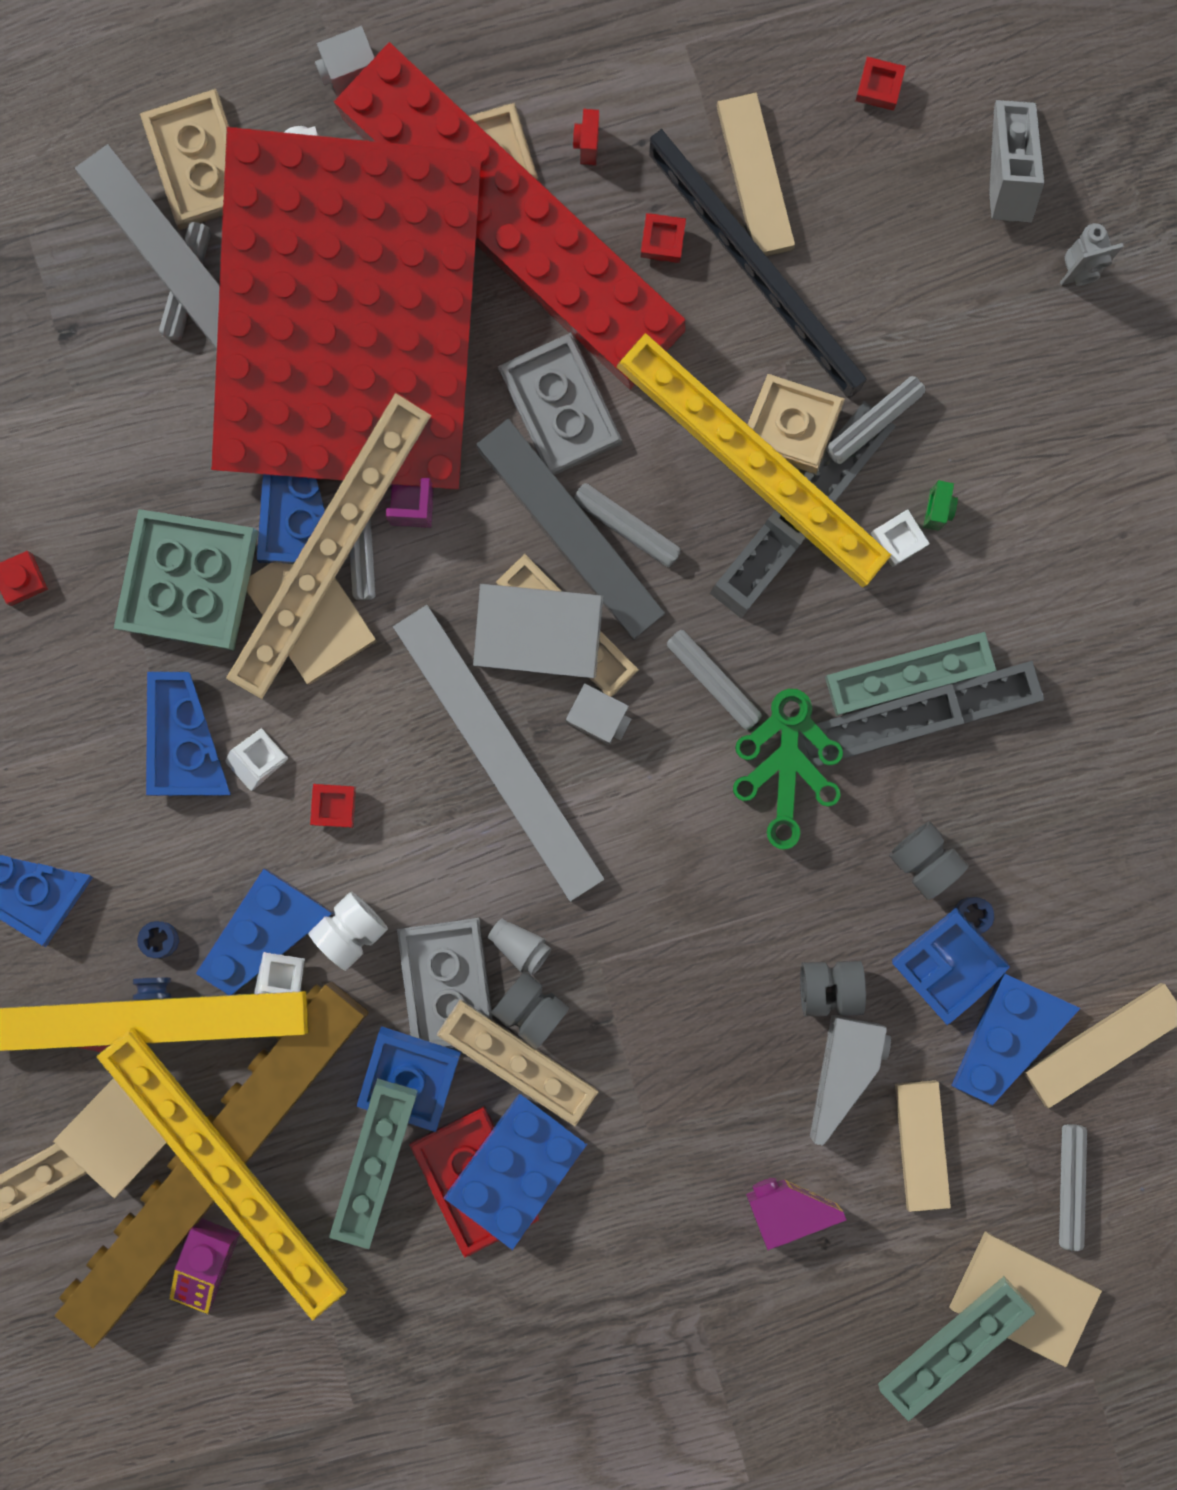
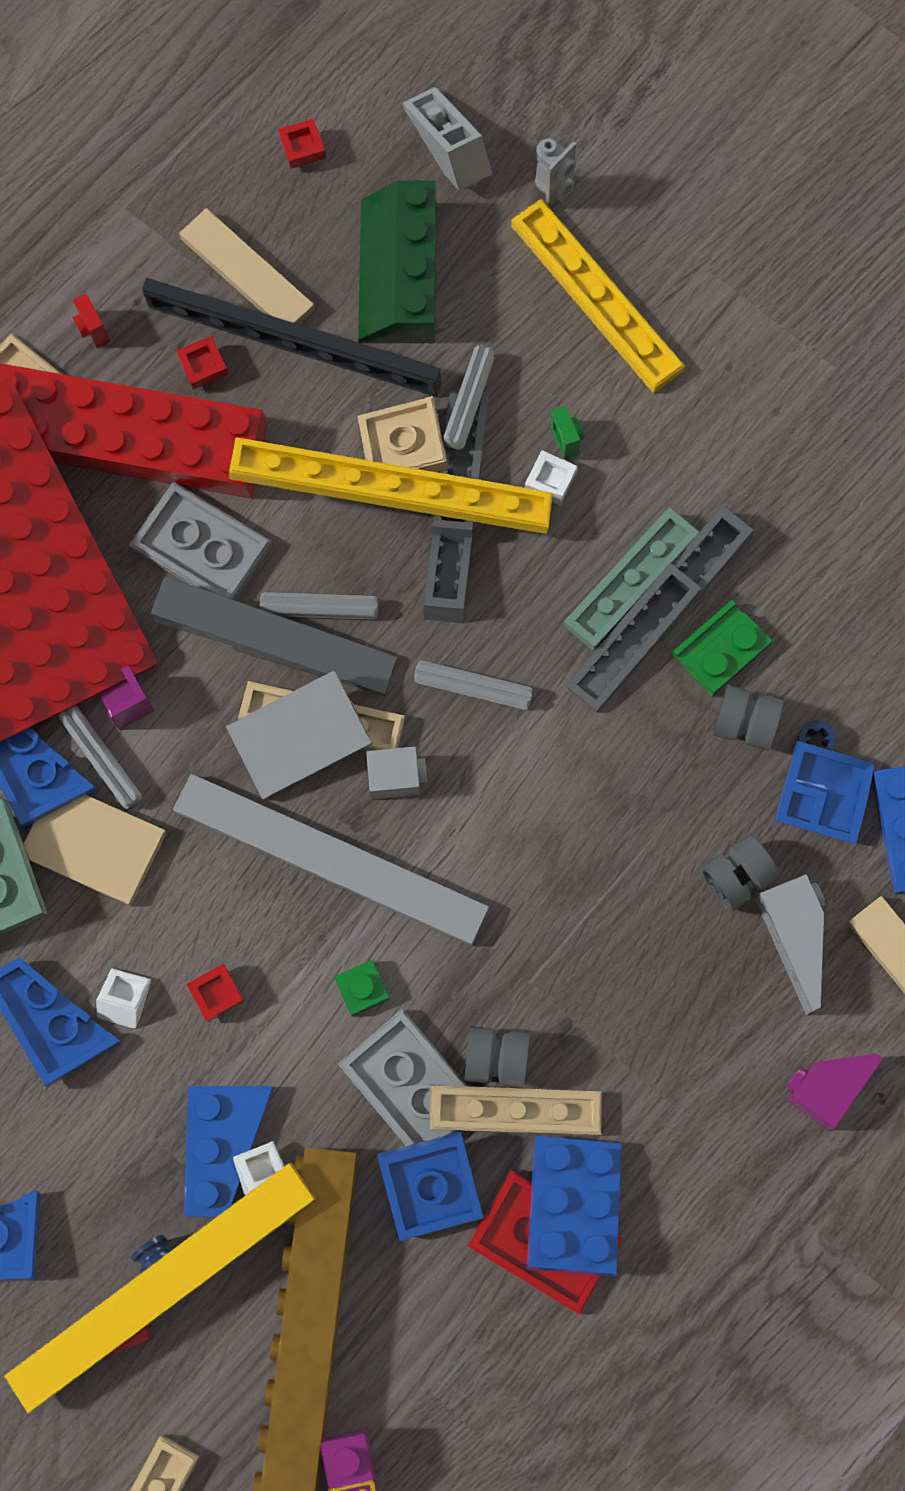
camera: 30 degrees left, 10 degrees down
(111, 1139) = (200, 1412): tan tile -> none
(146, 934) = (145, 1207): dark blue bush -> none
(222, 1173) = (318, 1374): yellow tile -> none
(328, 546) = (76, 776): tan tile -> none
(348, 931) = (296, 1090): white wheel -> none
(373, 1163) = (446, 1280): sand green plate -> none
(456, 878) = (361, 988): none -> green plate
(520, 946) = (453, 1009): light grey cone -> none
(787, 761) = (578, 711): green plant -> none
(893, 254) = (398, 264): none -> dark green slope
(947, 783) = (722, 648): none -> green plate
(1051, 394) = (597, 296): none -> yellow tile

